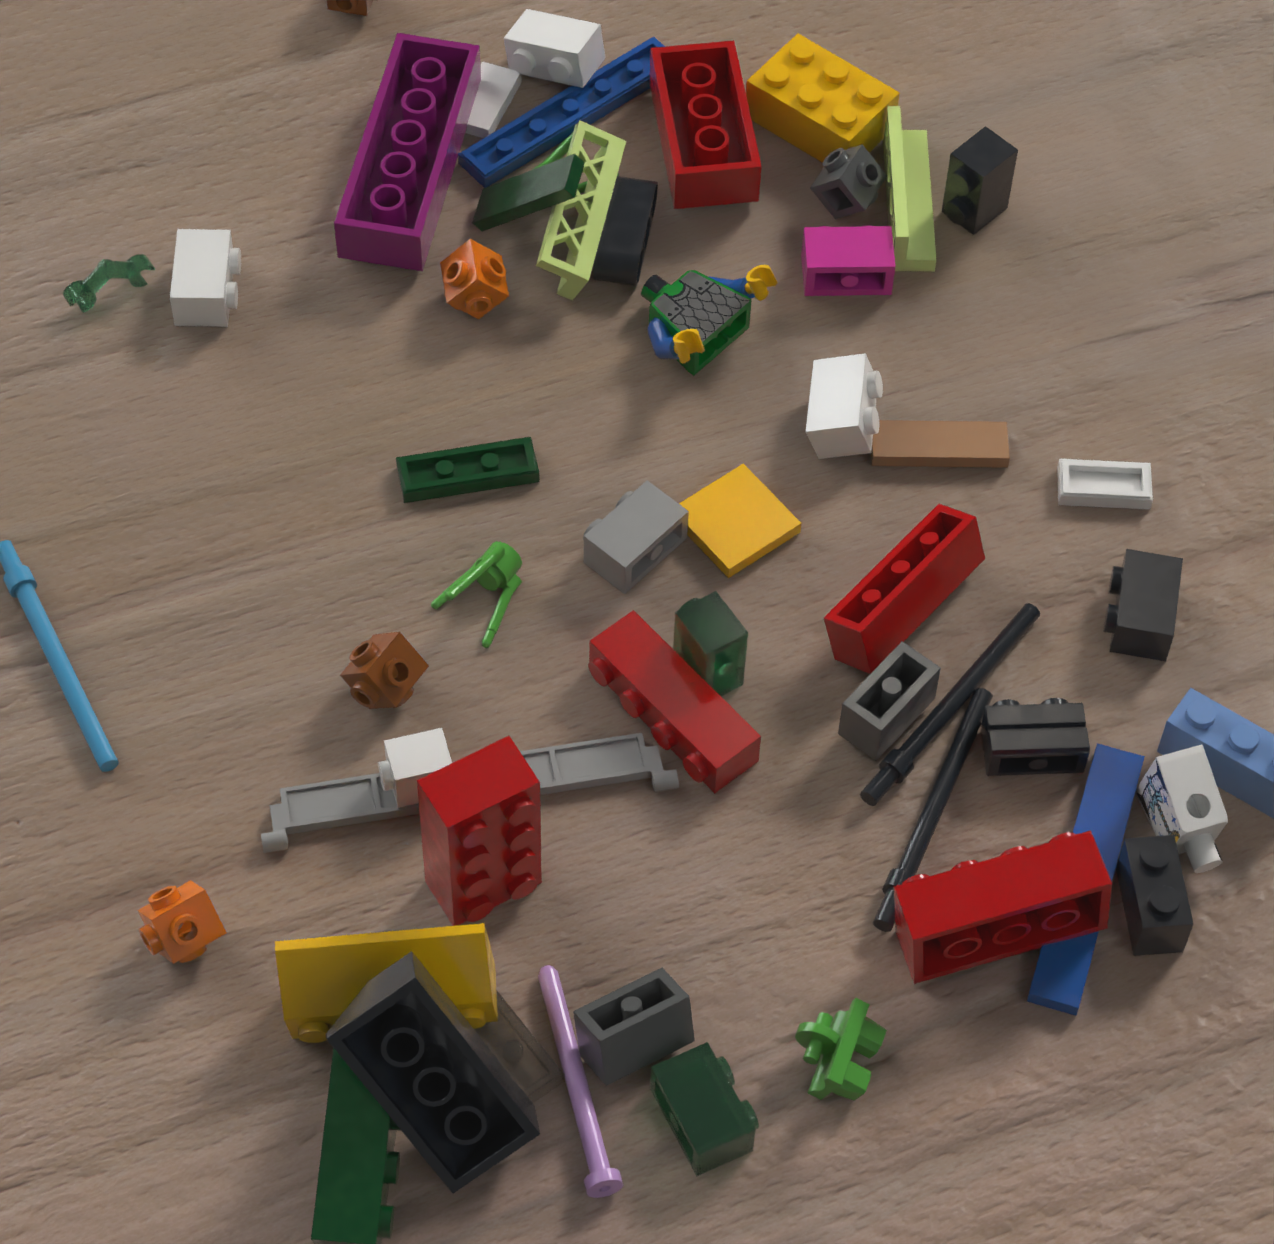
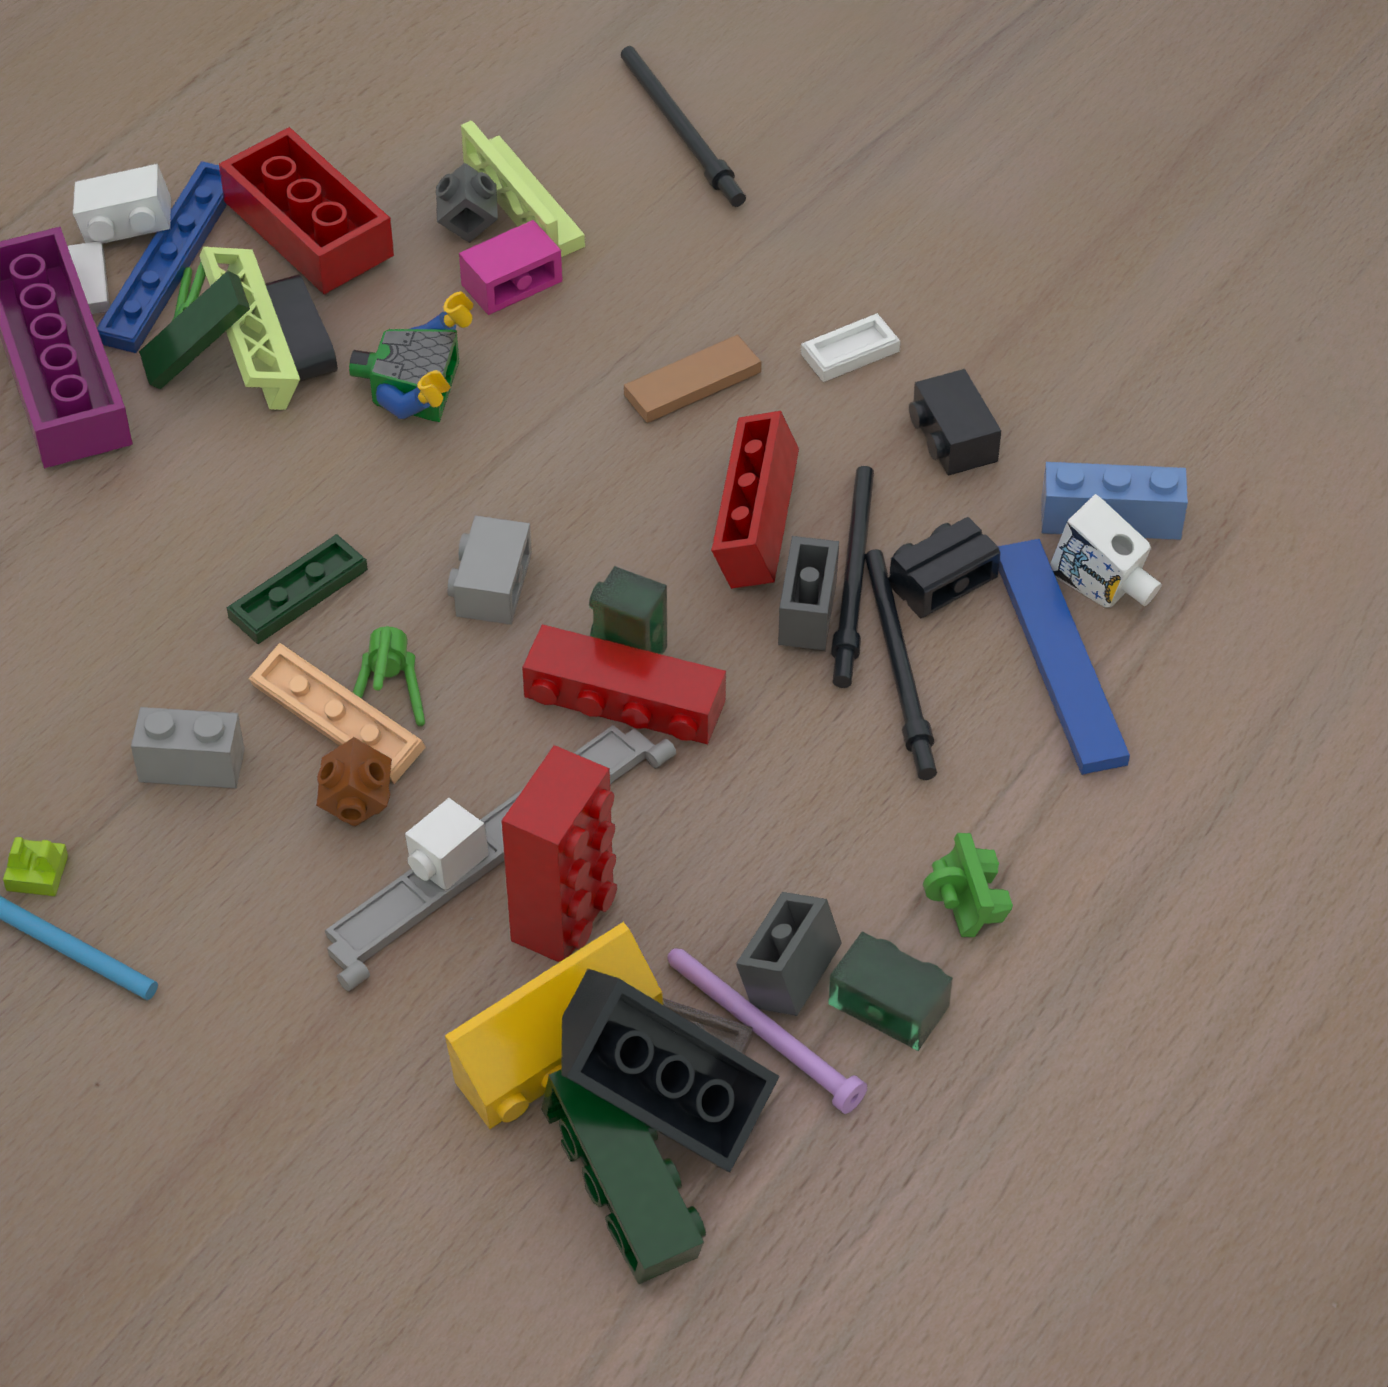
camera: 30 degrees left, 5 degrees down
(93, 607) = (35, 867): none -> lime tile
(180, 922) = (326, 1079): orange brick -> none
(275, 568) = (188, 747): none -> light grey brick
(420, 599) = (333, 708): none -> light nougat tile
(474, 279) = (192, 426): orange brick -> none
(738, 520) = (570, 517): yellow tile -> none
(818, 100) = (395, 147): yellow brick -> none
(843, 406) = (594, 381): white brick -> none
(979, 180) = (581, 151): black brick -> none
(1002, 905) = (1022, 701): red brick -> none
(1101, 253) = (716, 170): none -> black bar
(1154, 895) = (1128, 637): black brick -> none

